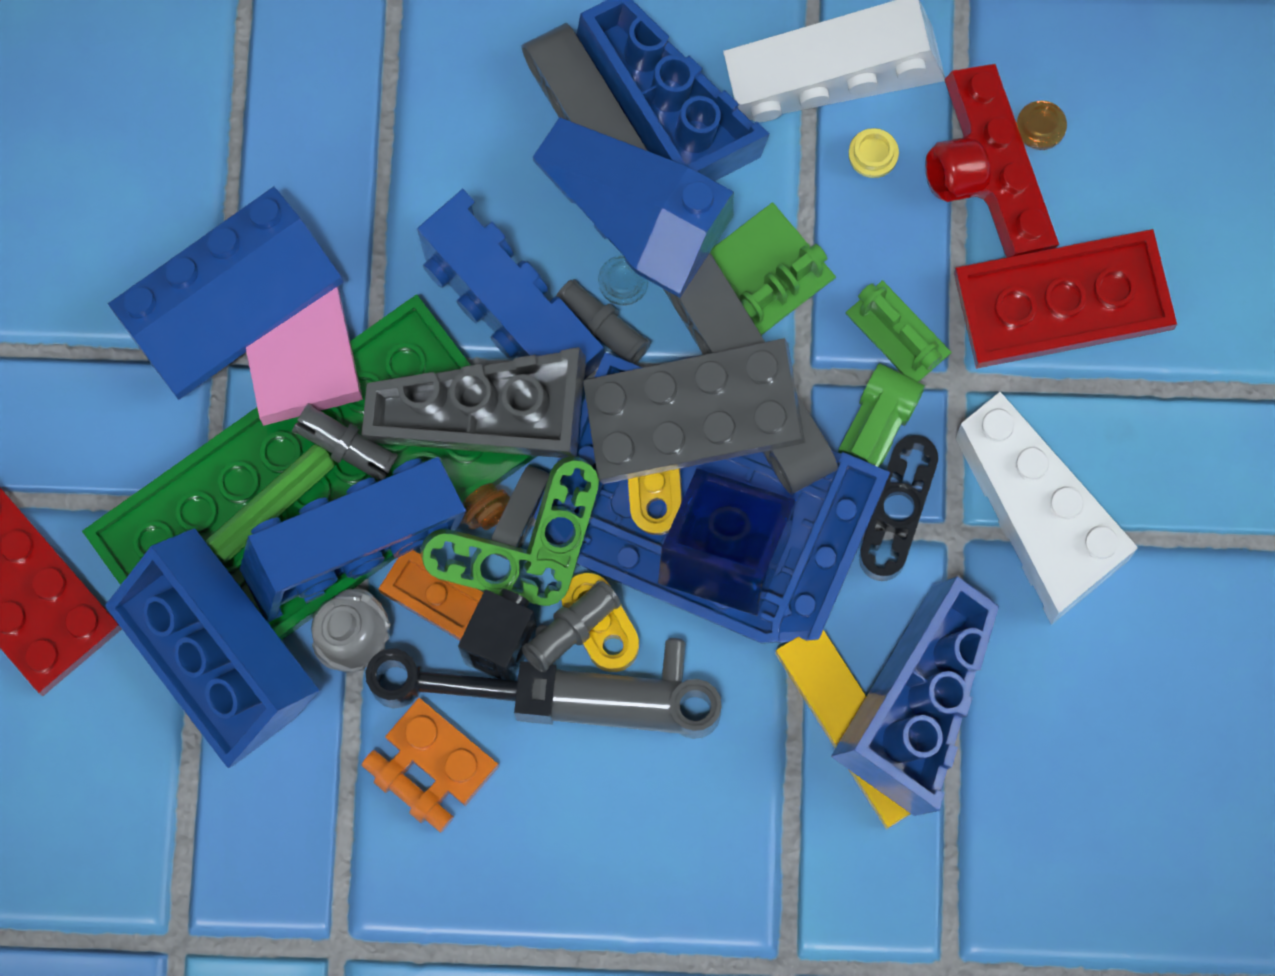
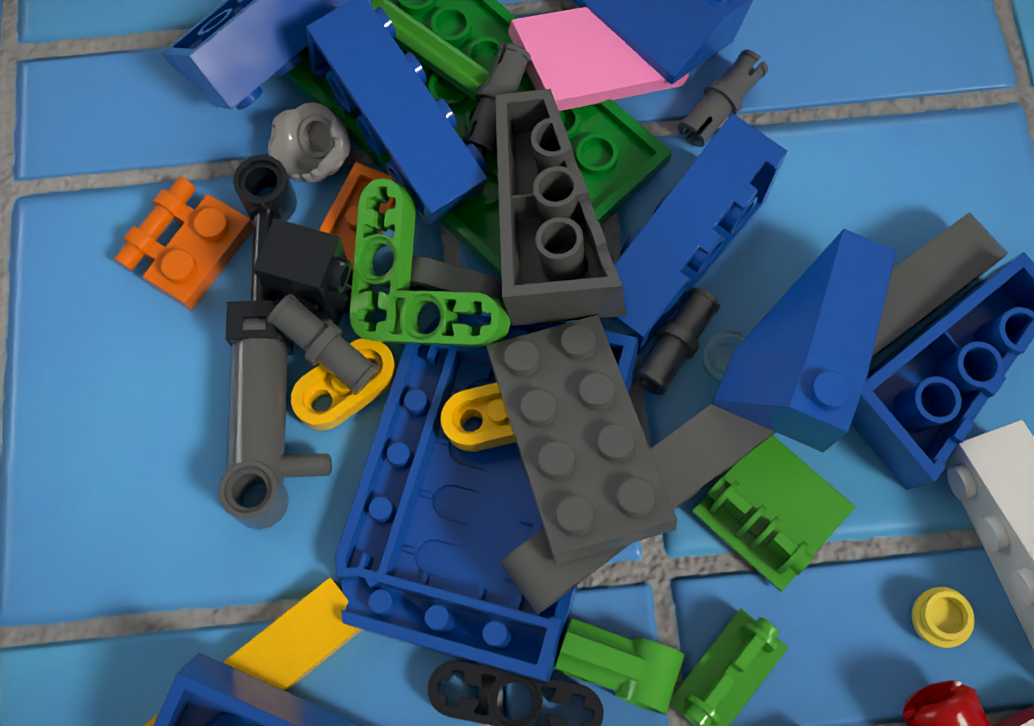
camera: 80 degrees right, 5 degrees down
(361, 237) = (723, 98): none -> dark grey pin
(485, 507) = (455, 248): clear orange plate -> none
(726, 541) = (431, 494): clear blue brick -> none

